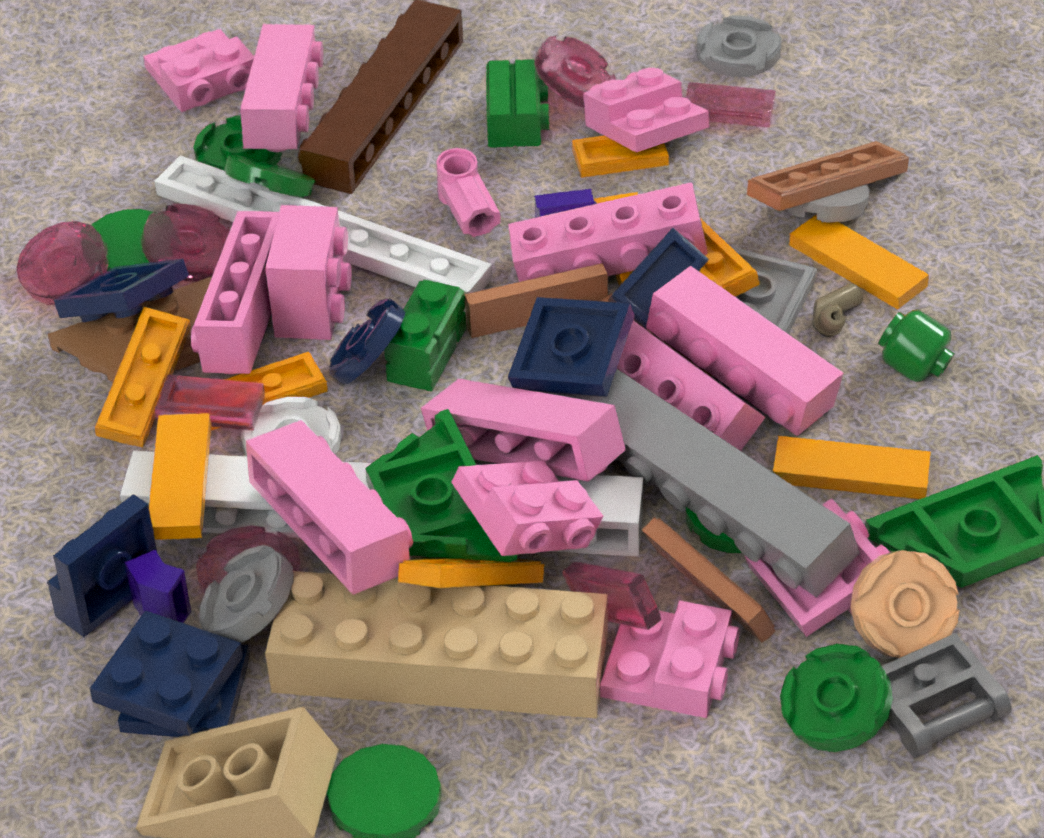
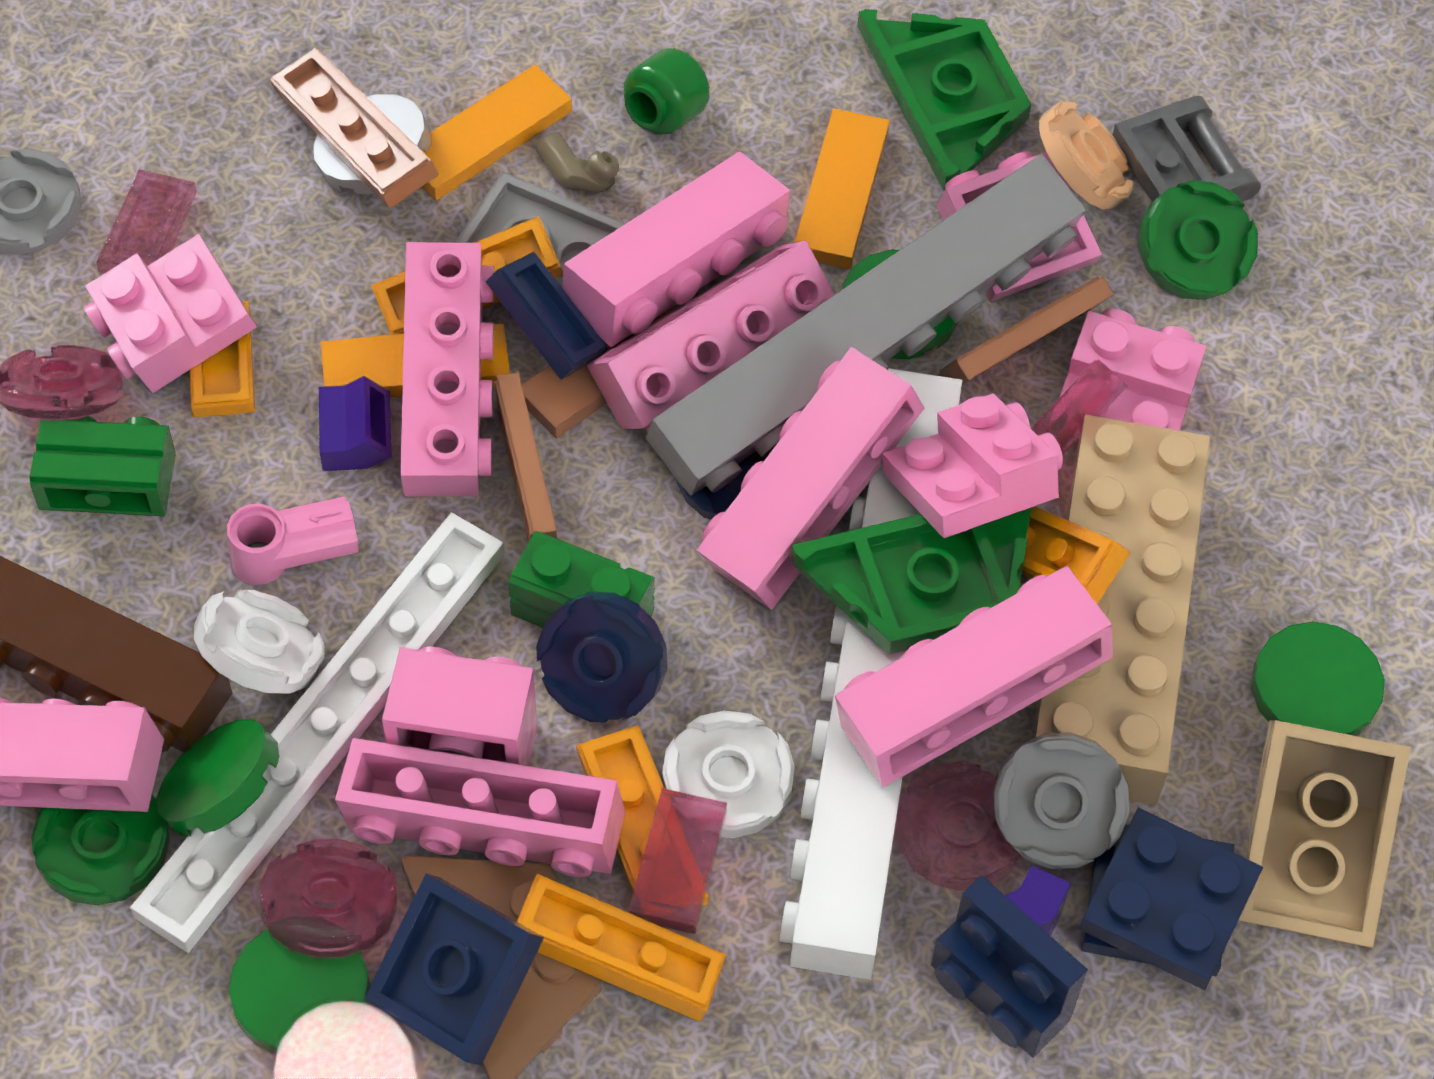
camera: 90 degrees left, 15 degrees up
(180, 476) = (860, 873): light orange tile -> none
(375, 182) = (258, 642): none -> white tile
(571, 346) = (710, 396): dark blue plate -> none

